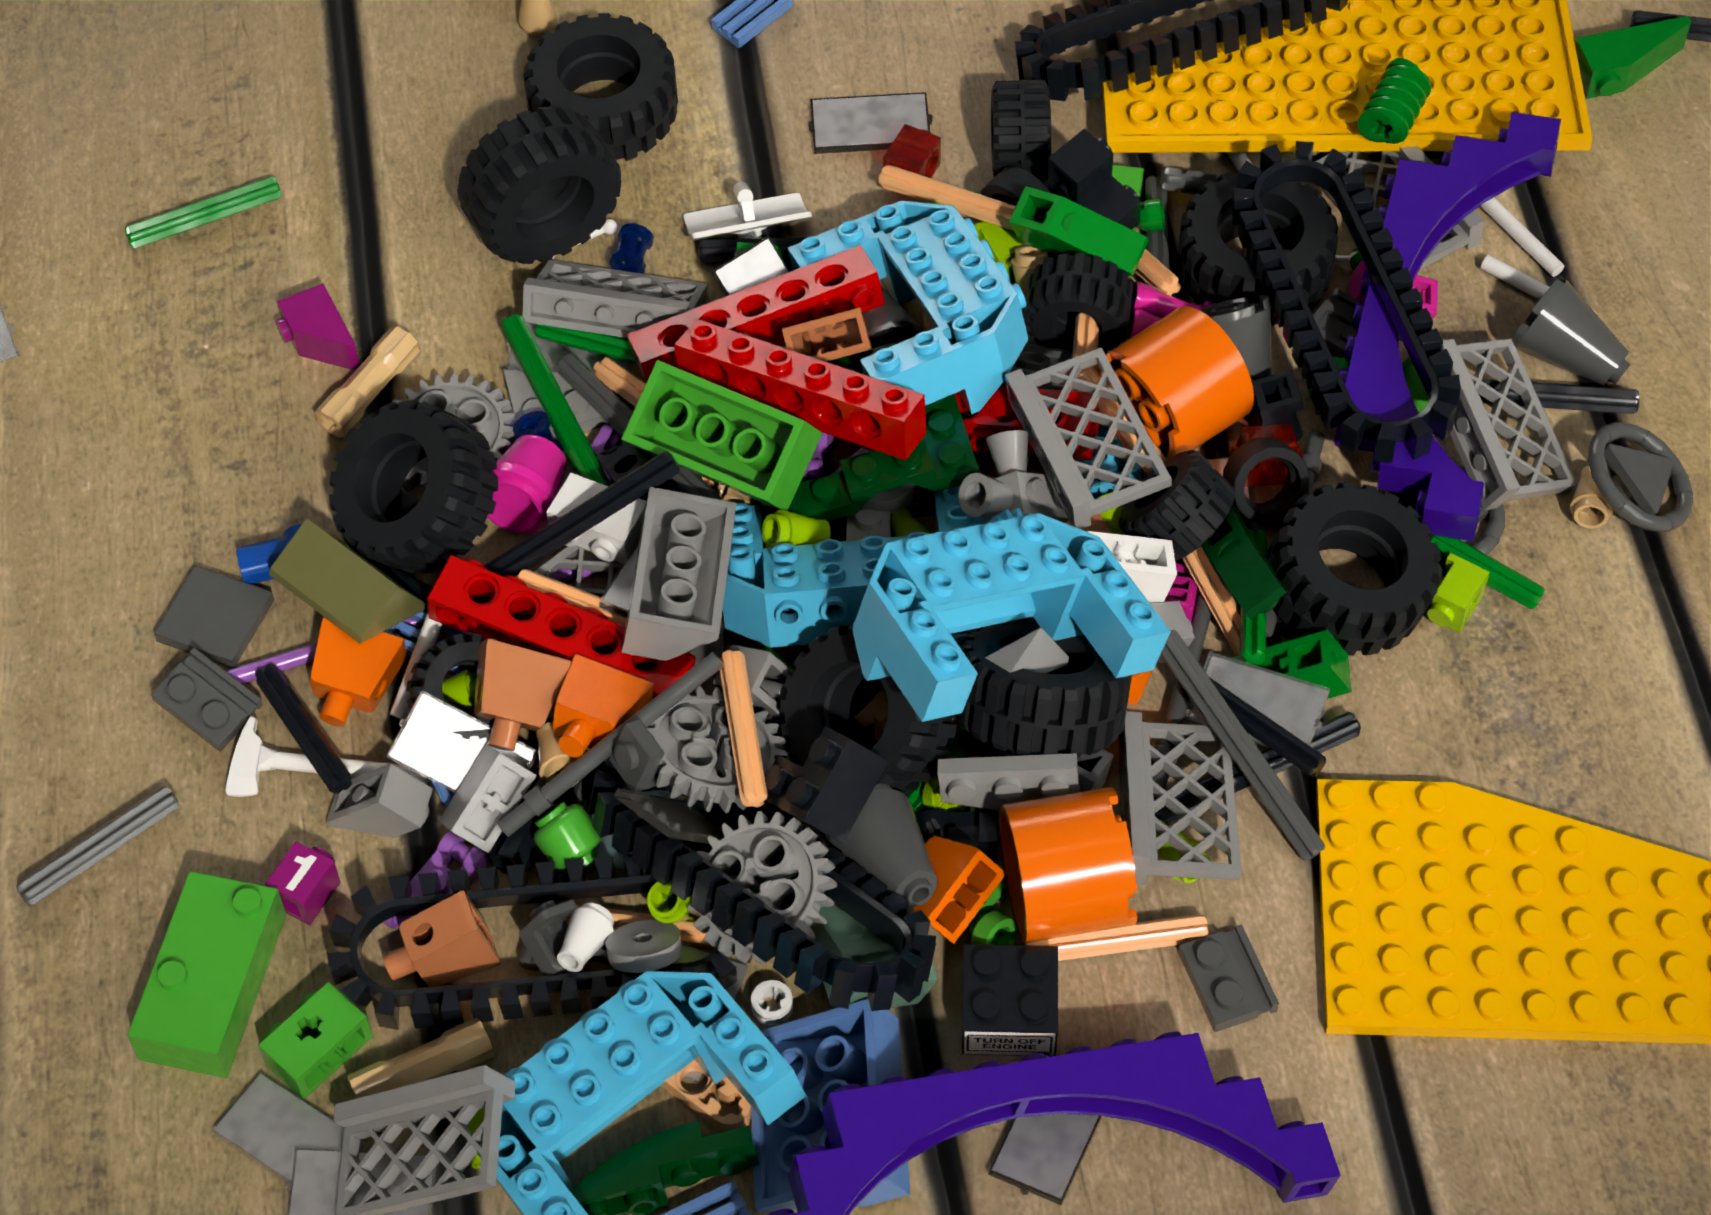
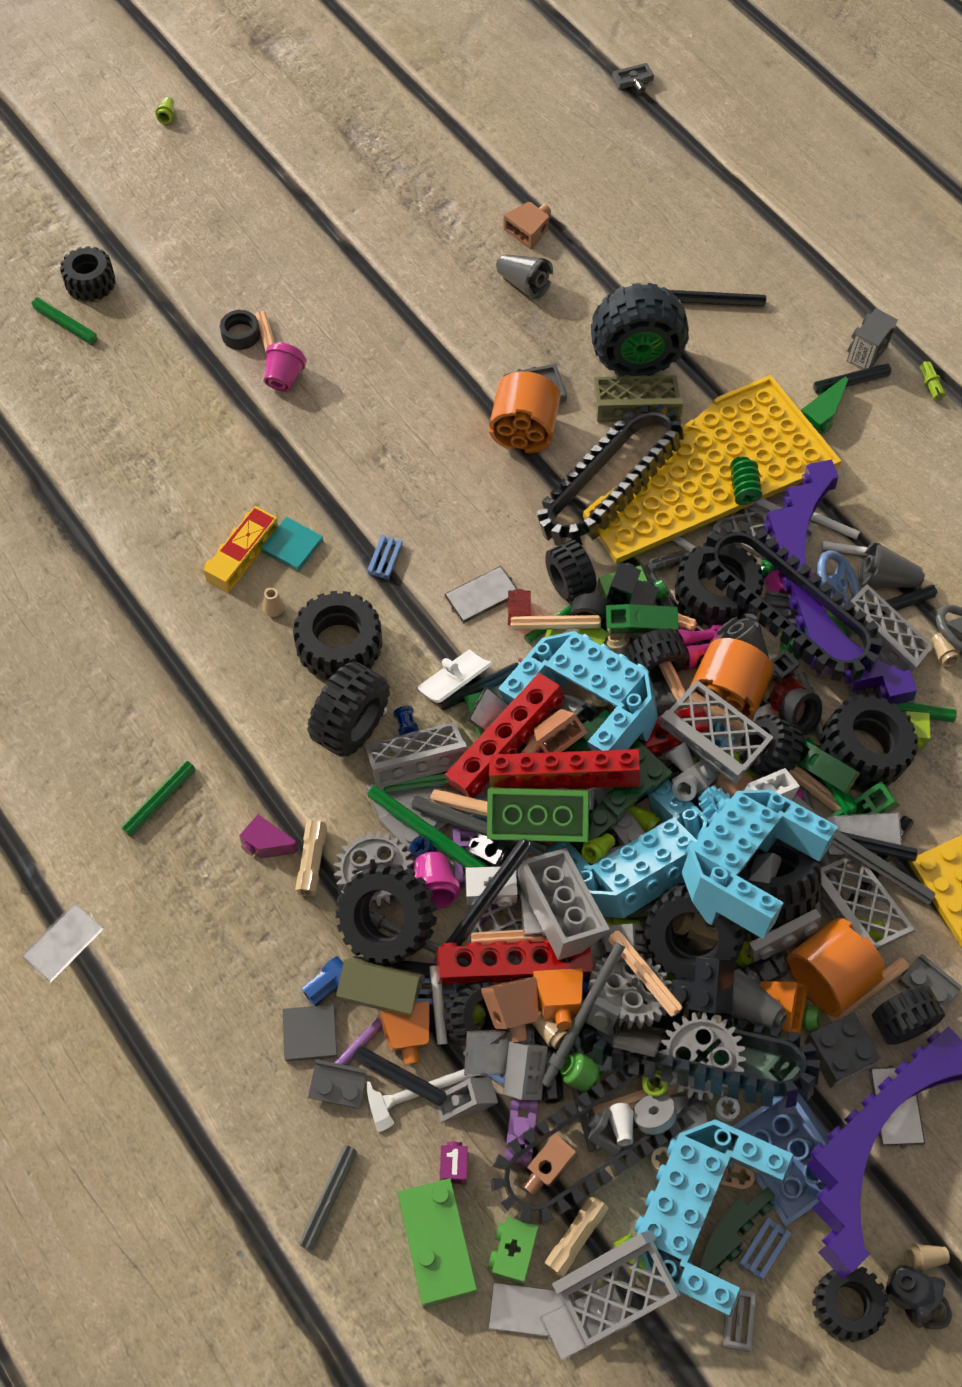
camera: 30 degrees left, 5 degrees up
(1144, 988) = (908, 1015): none -> black tyre
(1457, 317) = (837, 579): none -> medium blue piece

